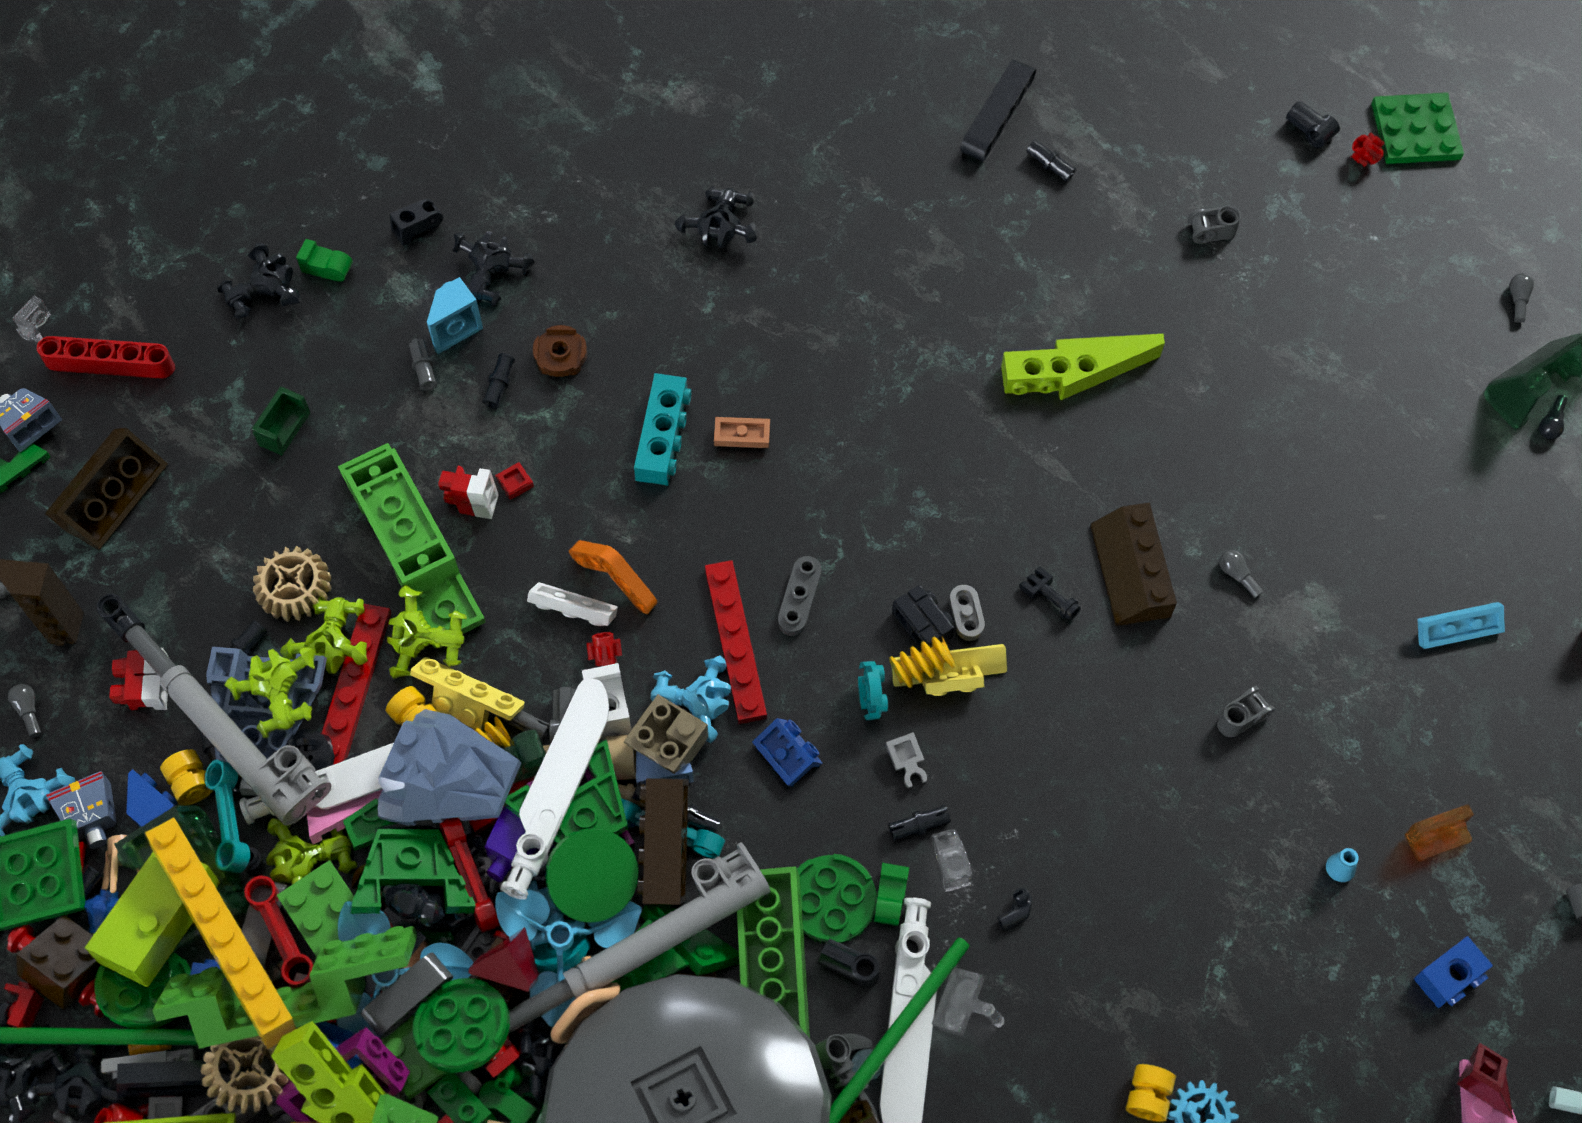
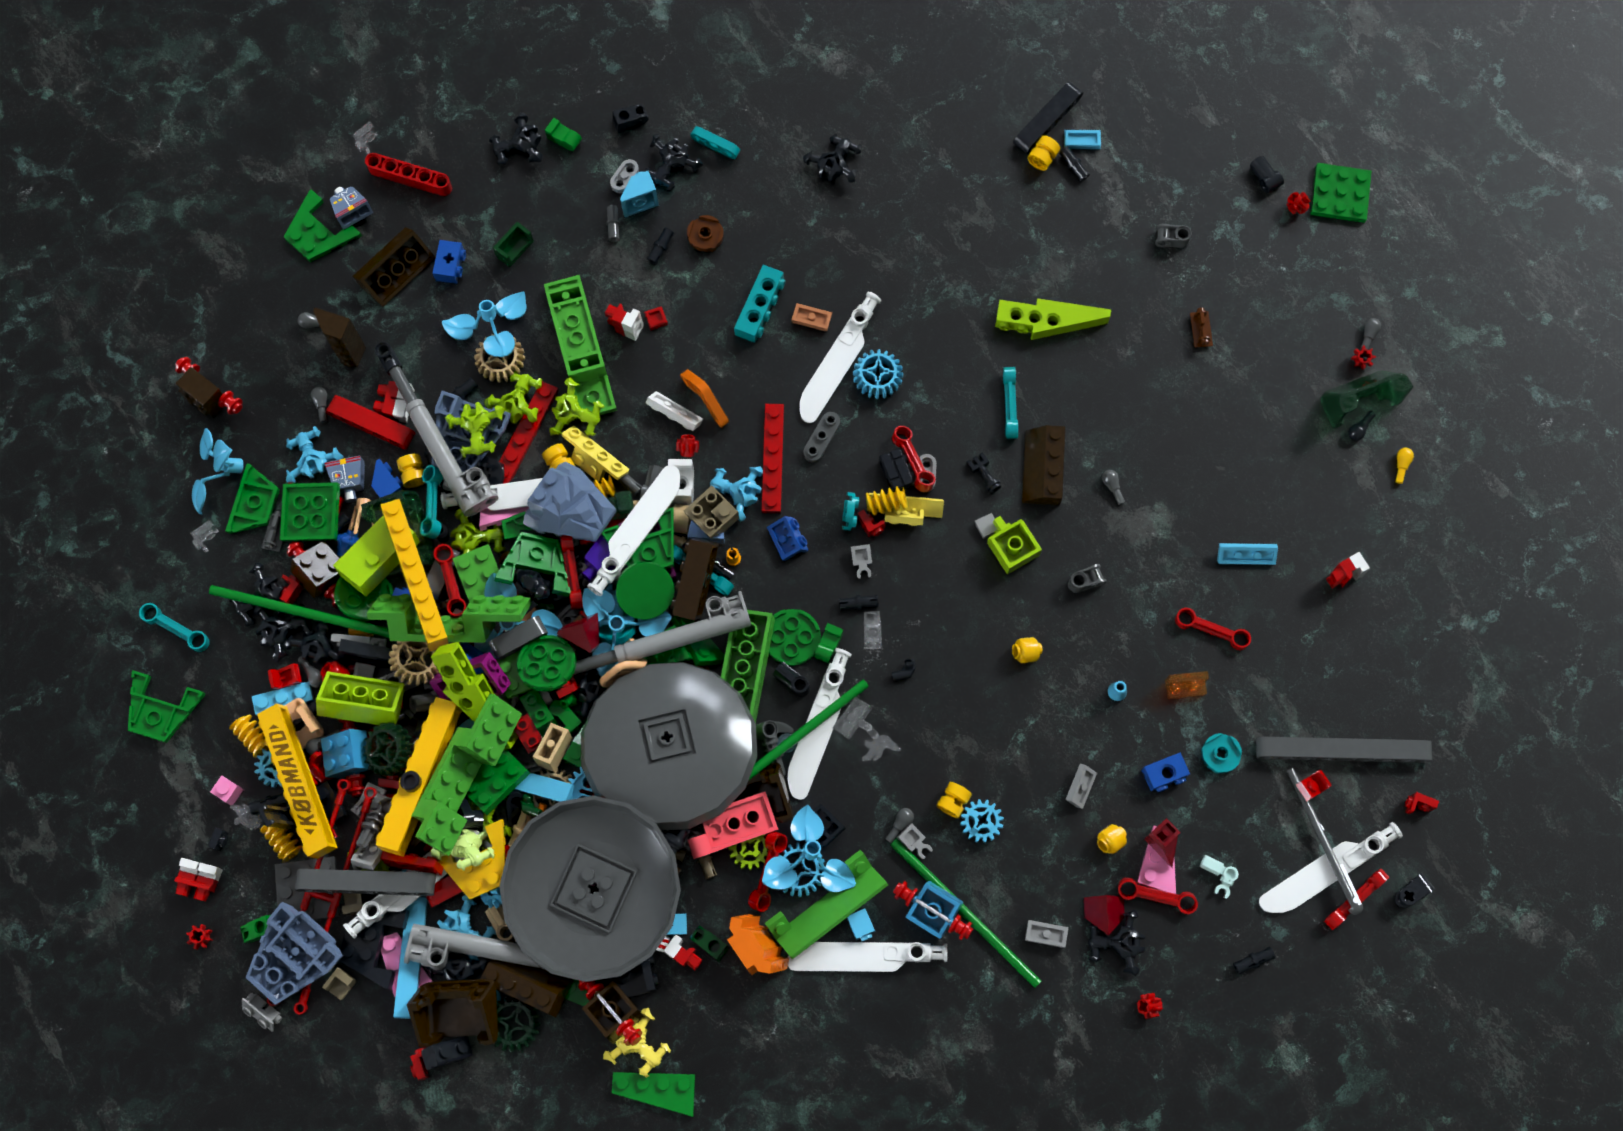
camera: 15 degrees right, 10 degrees up
(109, 719) = (370, 422): none -> red beam
(189, 464) = (449, 261): none -> blue brick
(288, 562) = (497, 345): none -> medium azure plant
(422, 299) = (623, 176): none -> light grey plate
(545, 229) = (715, 142): none -> teal beam
(708, 800) = (733, 562): none -> light orange pin
(794, 486) = (836, 362): none -> white piece
(869, 478) = (885, 374): none -> medium azure gear
(901, 703) = (867, 522): none -> red bracket
(944, 596) = (913, 459): none -> red piece
(1006, 153) = (1043, 153): none -> yellow wheel
(1007, 1038) = (877, 746): none -> clear piece
(1052, 128) = (1082, 139): none -> medium azure tile
(1070, 518) = (1009, 383): none -> teal piece
(1076, 668) = (985, 525): none -> light grey tile
(1124, 685) = (1013, 544): none -> lime hinge
(1190, 836) = (1027, 650): none -> yellow head
(1291, 335) = (1201, 328): none -> reddish brown hinge
(1335, 1024) = (1081, 786): none -> light grey plate
(1408, 1096) = (1111, 839): none -> yellow head
(1448, 743) = (1213, 629): none -> red piece
(1511, 936) = (1219, 764): none -> teal plate
(1525, 327) = (1366, 353): none -> red gear

